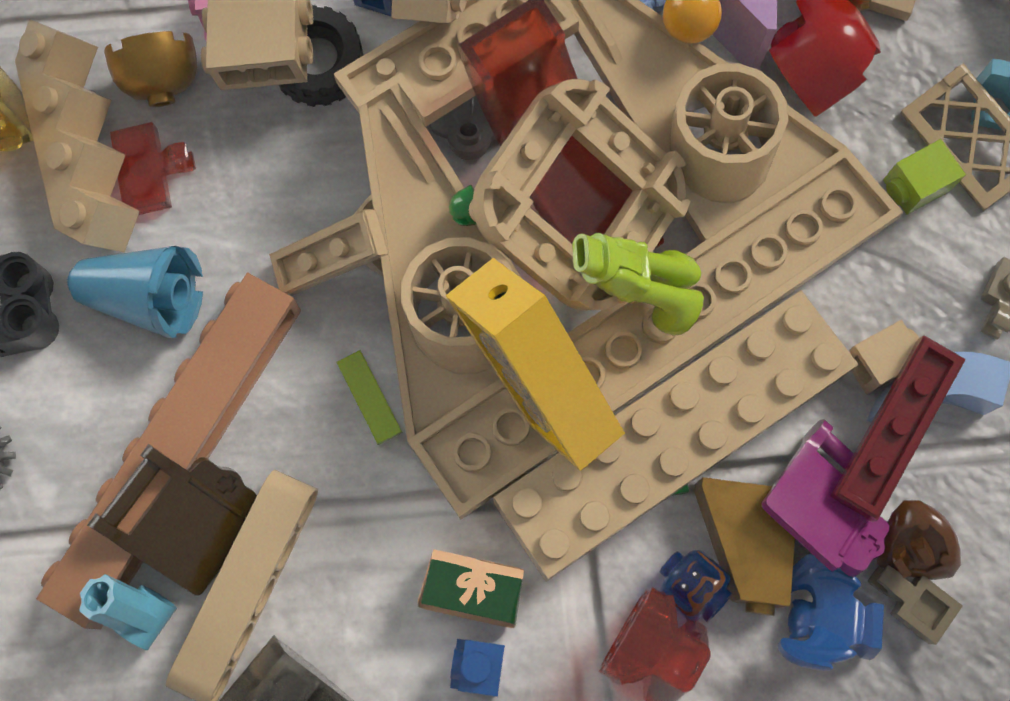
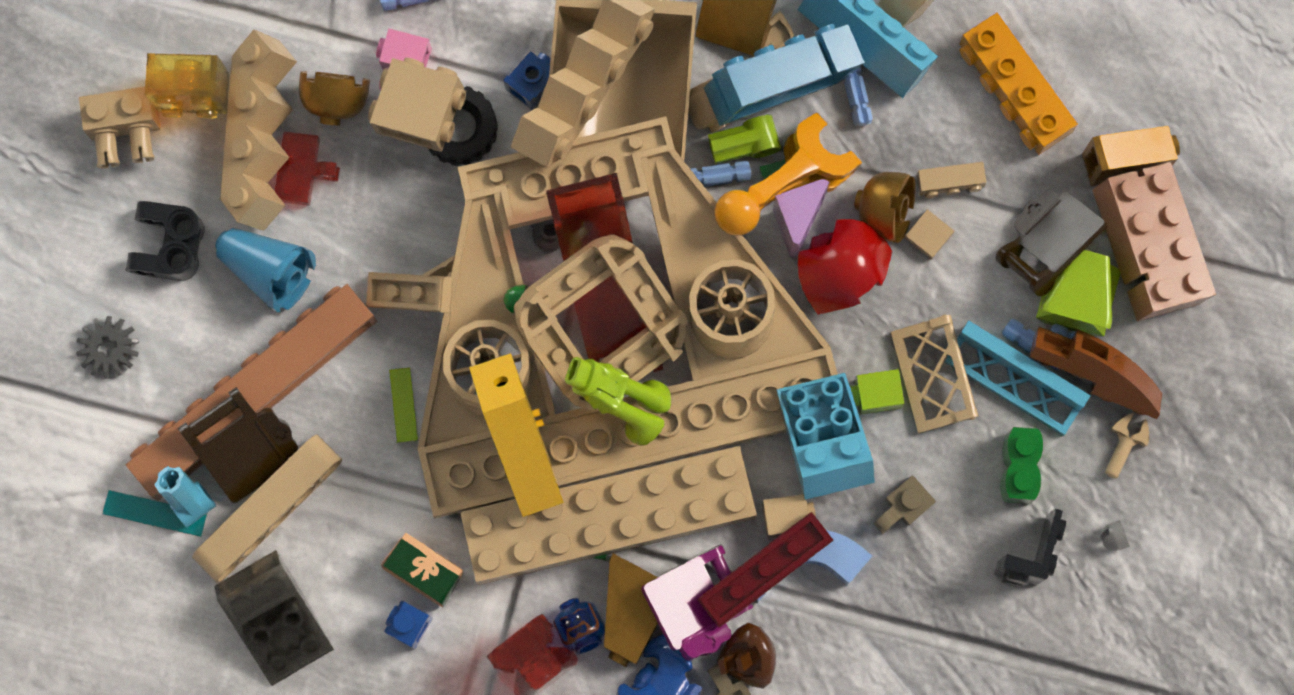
camera: 25 degrees right, 5 degrees up
(92, 649) = (148, 512): none -> teal sticker
(898, 244) = (826, 436): none -> medium azure slope

